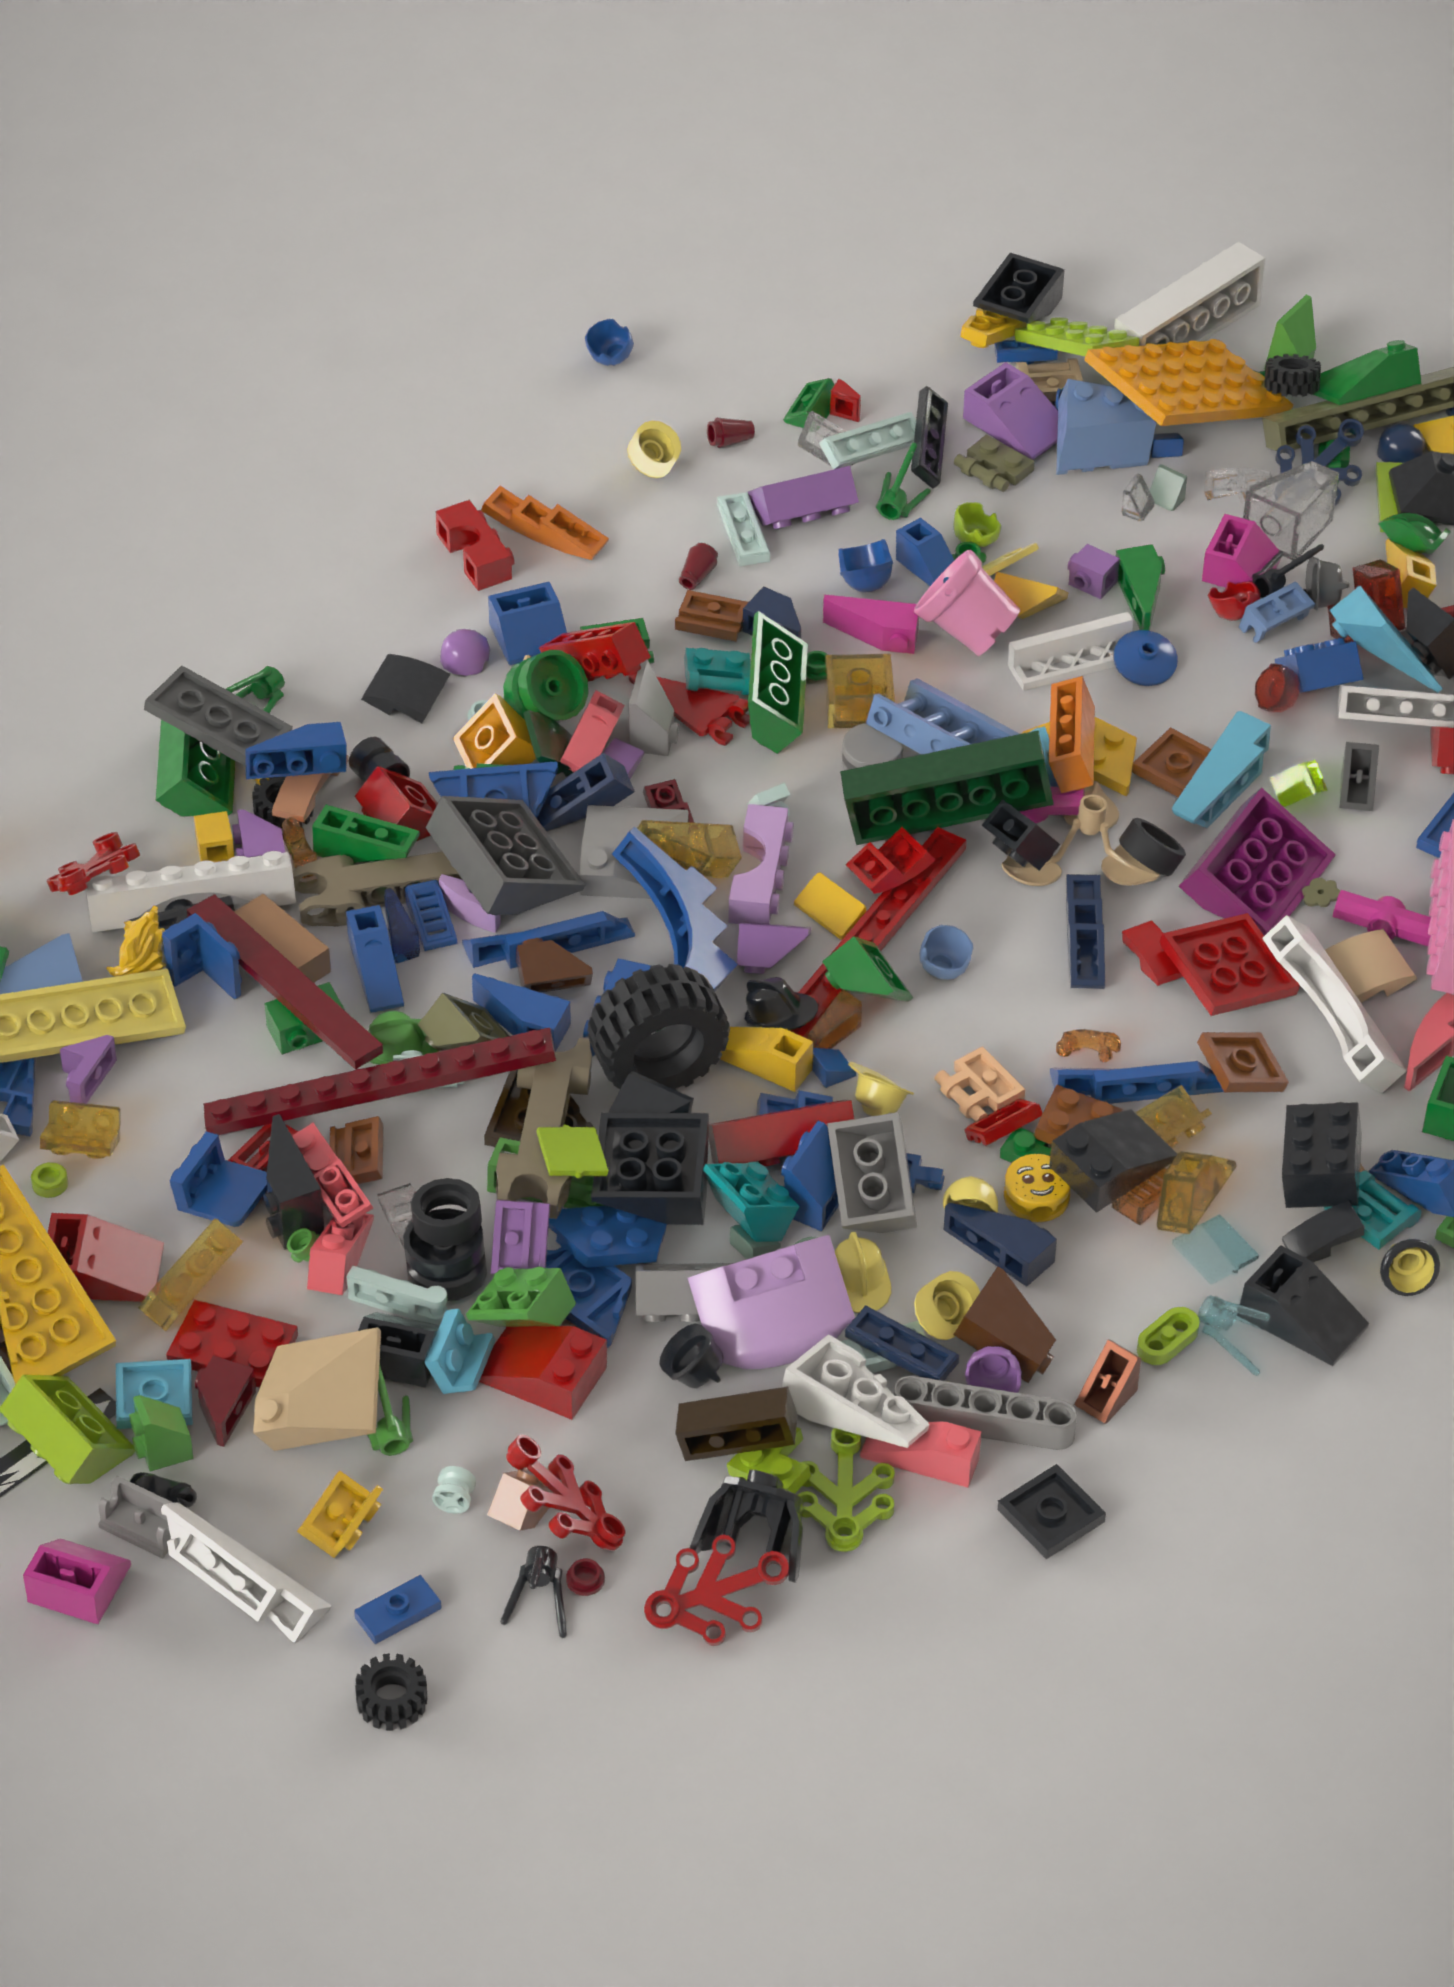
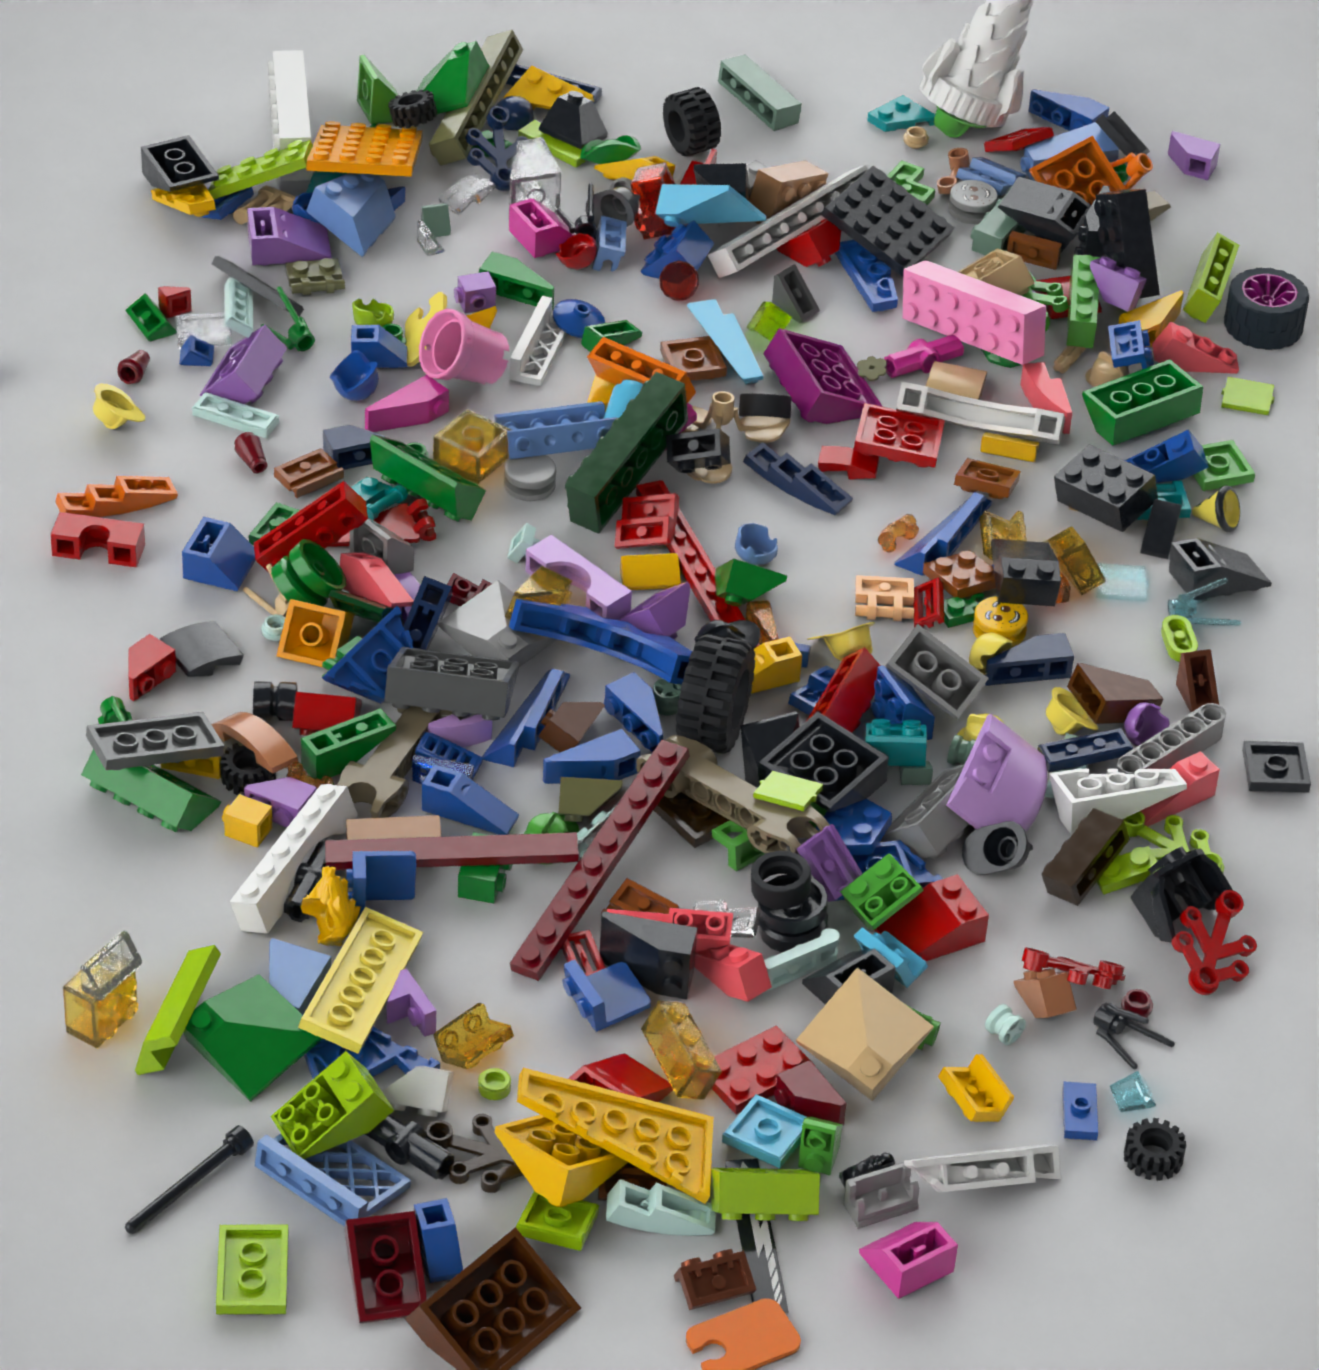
camera: 55 degrees left, 5 degrees down
(108, 857) = (234, 899): red plant -> none
(301, 751) = (247, 712): blue slope -> none
(301, 1243) = (704, 974): bright green plate -> none
(341, 667) = (148, 665): none -> slope
(462, 1639) = (1132, 1093): none -> clear light blue slope
(464, 652) = (199, 603): medium lavender hair -> none
(799, 457) = (196, 352): none -> blue slope
(1139, 691) = (612, 331): none -> green slope
(1325, 1054) = (1009, 447): none -> yellow slope

